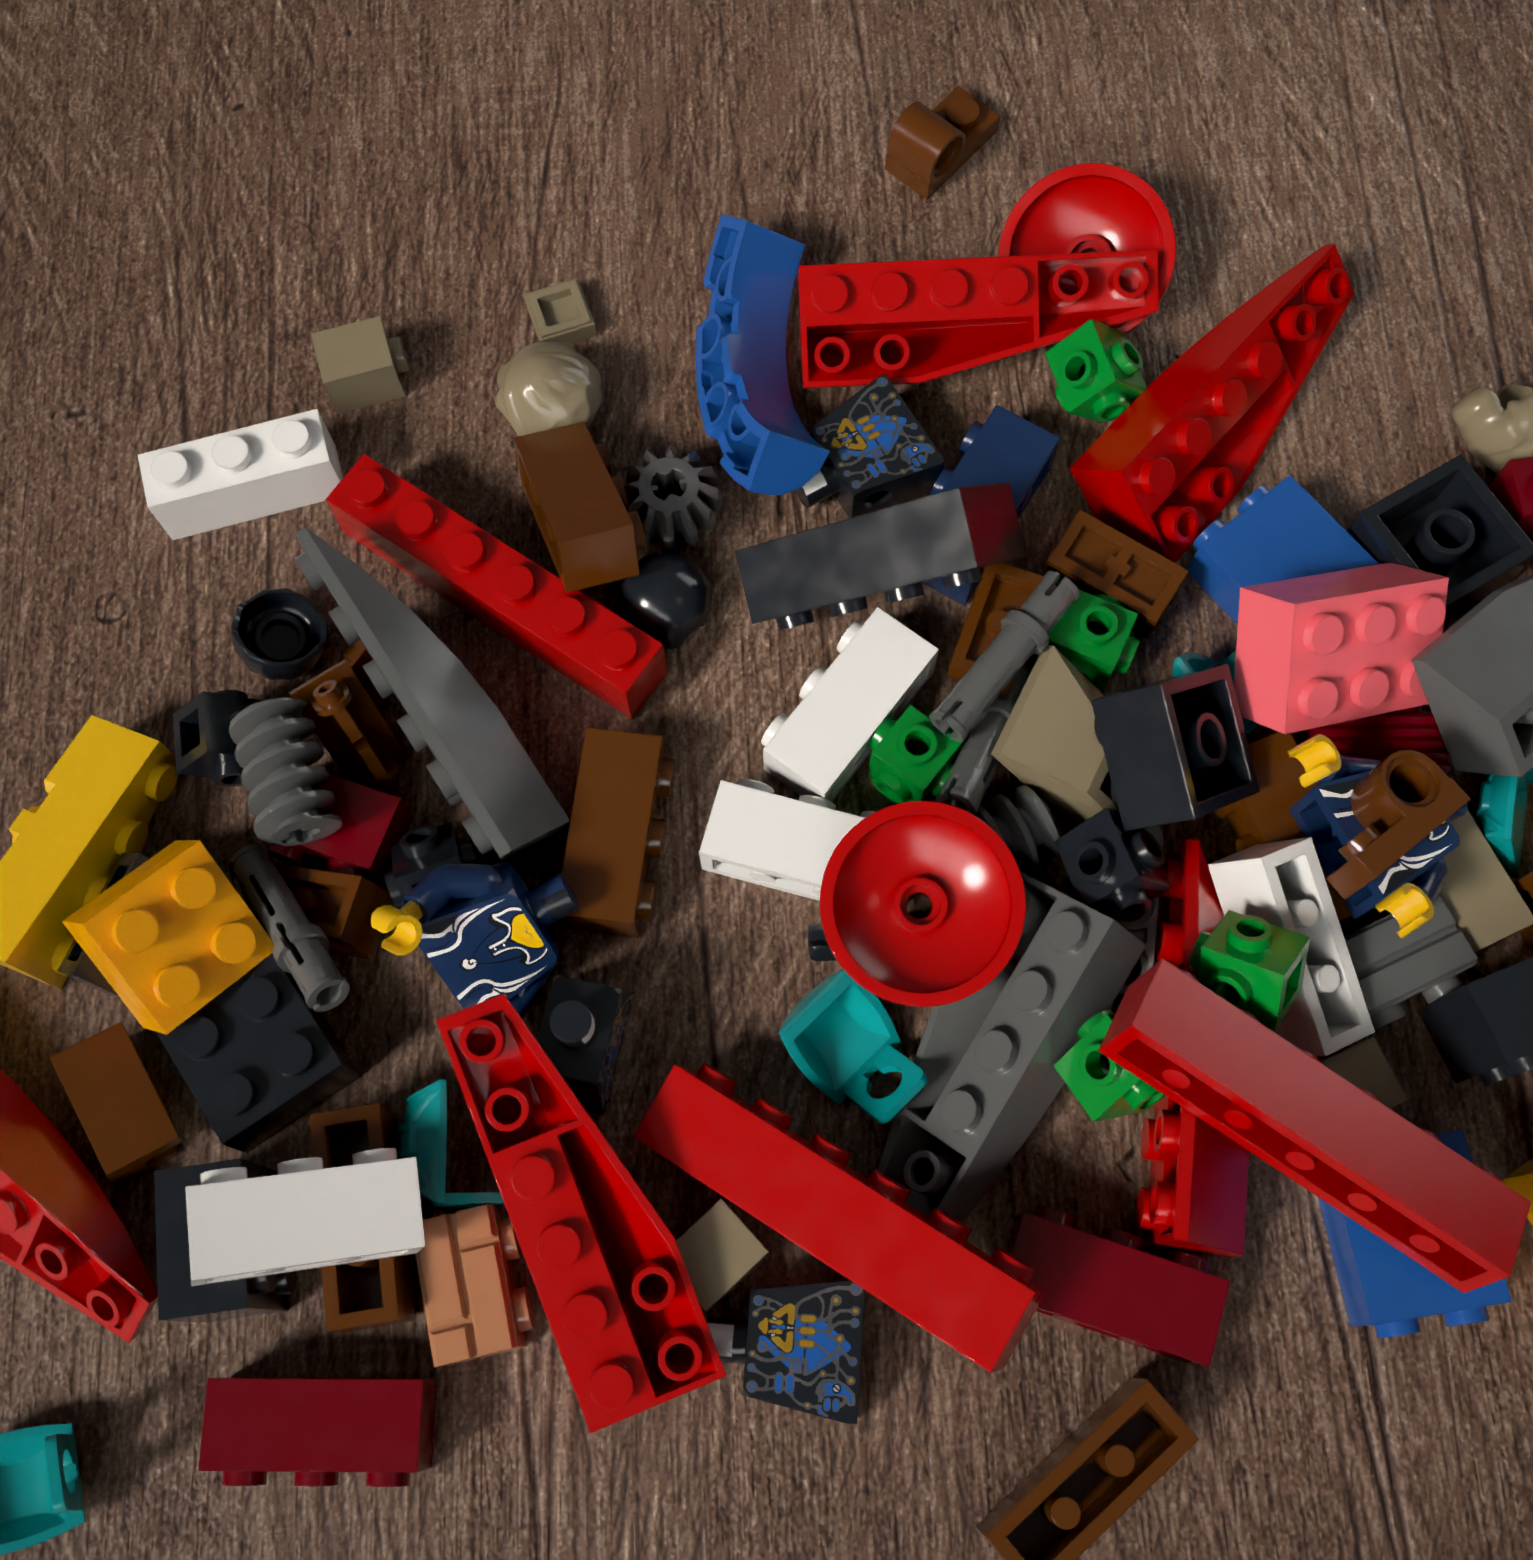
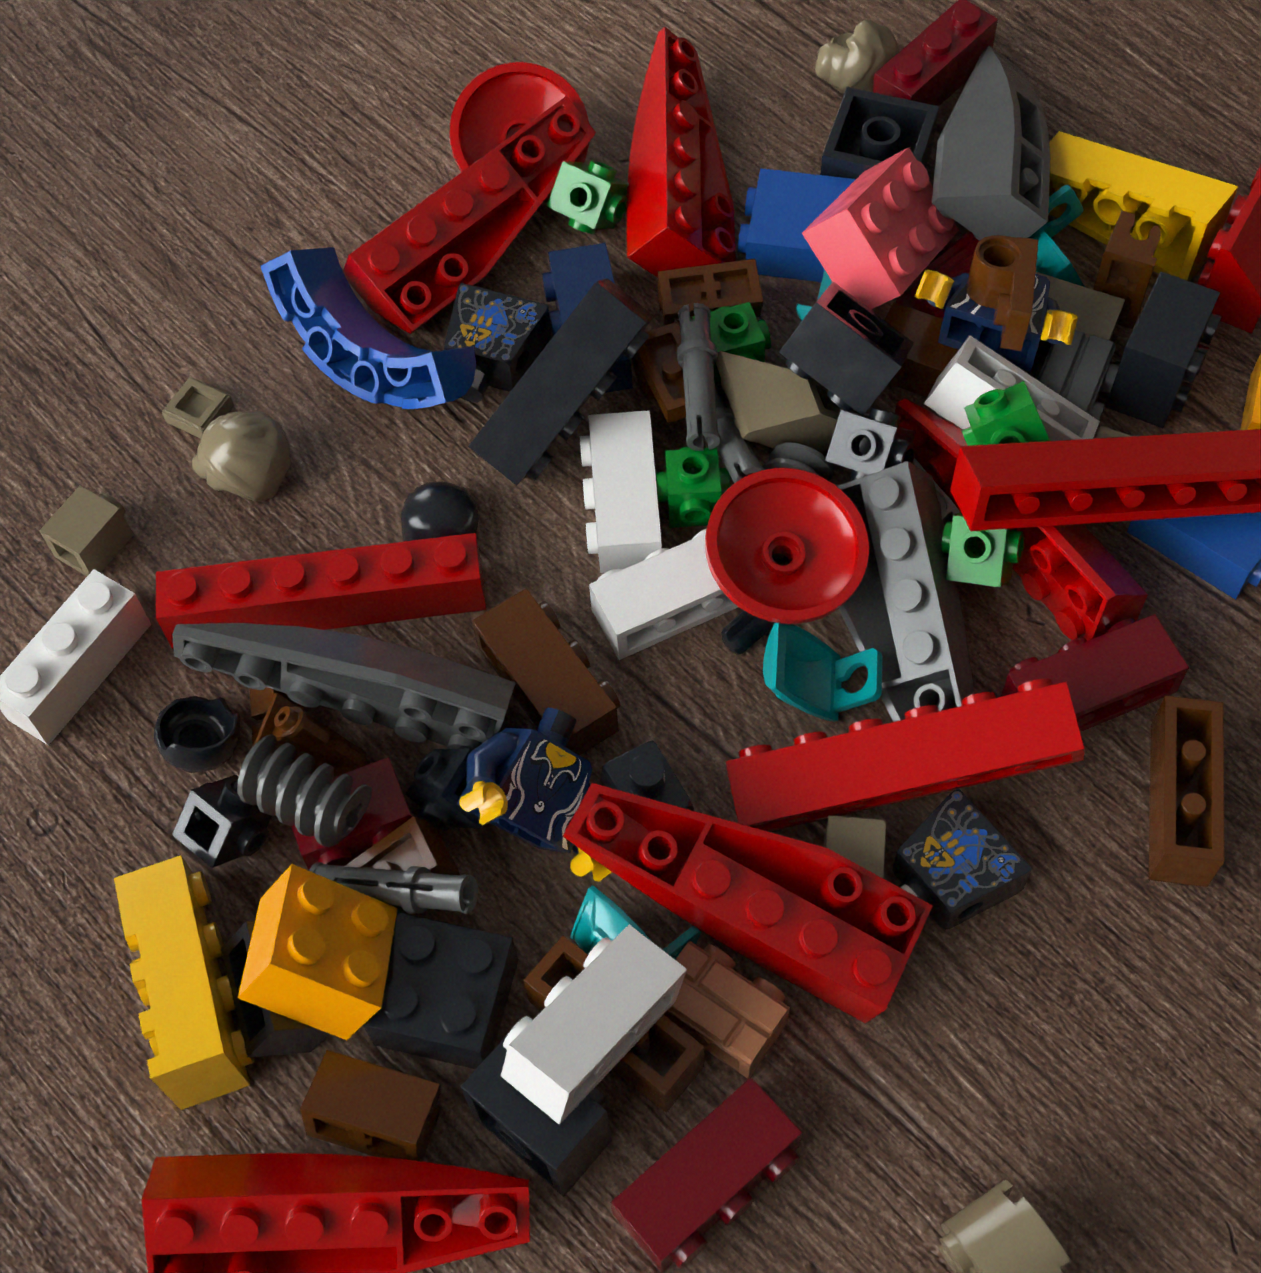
camera: 40 degrees left, 10 degrees down
(579, 506) = (336, 497): reddish brown brick -> none
(673, 497) = (387, 457): flat silver gear -> none
(935, 143) = (355, 138): reddish brown plate -> none

